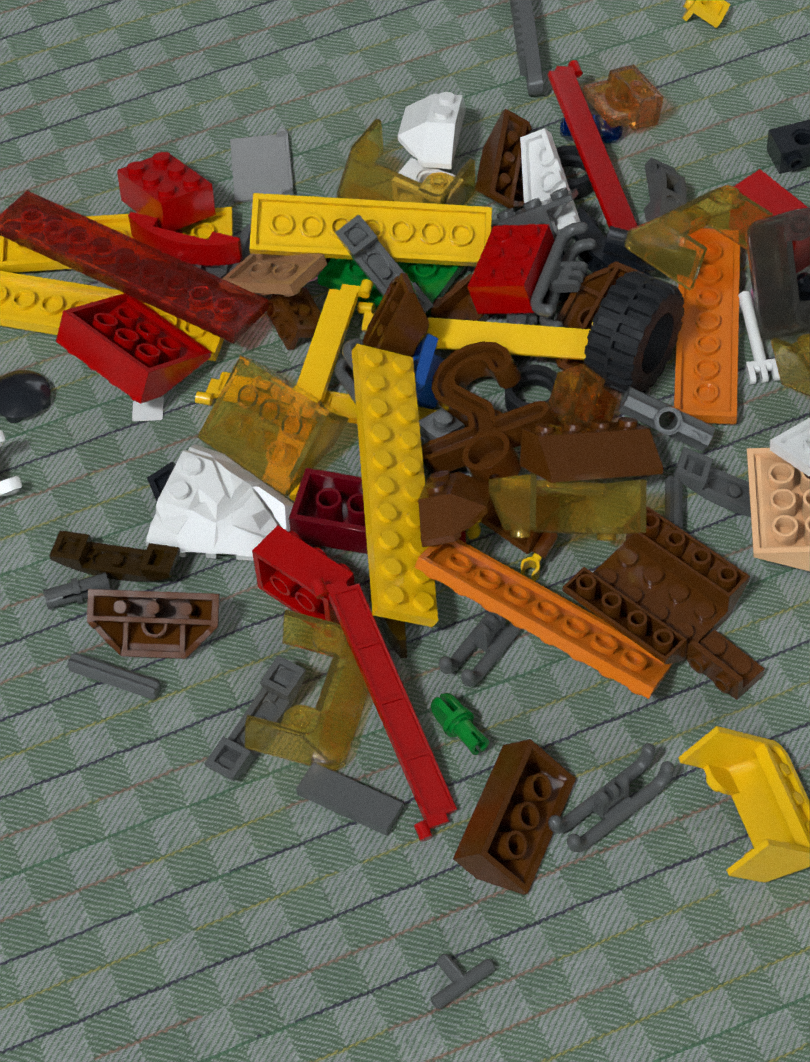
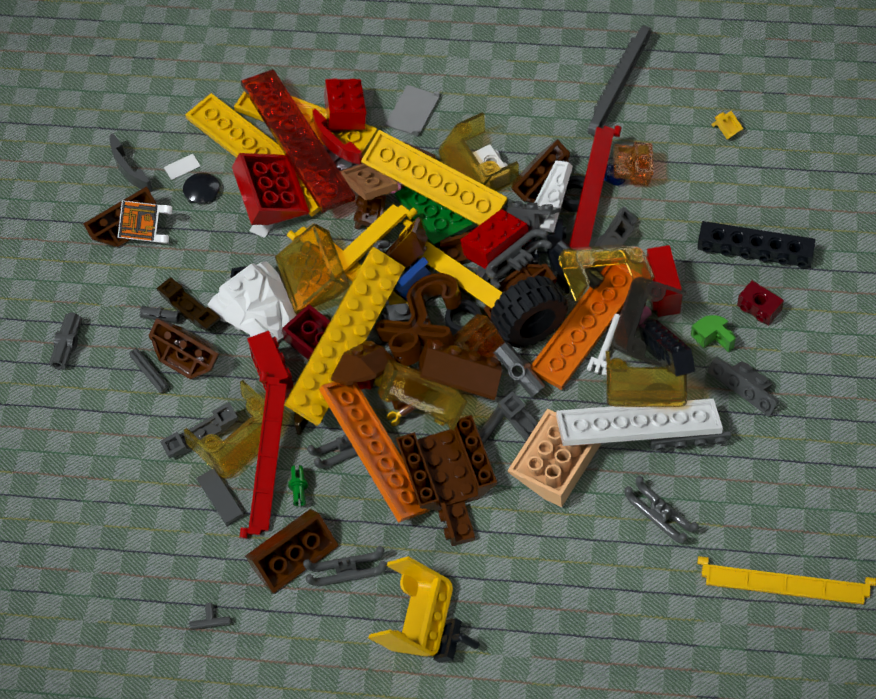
camera: 30 degrees right, 5 degrees up
(372, 257) = (425, 204): dark grey slope -> none
(433, 129) = (514, 132): white wedge -> none

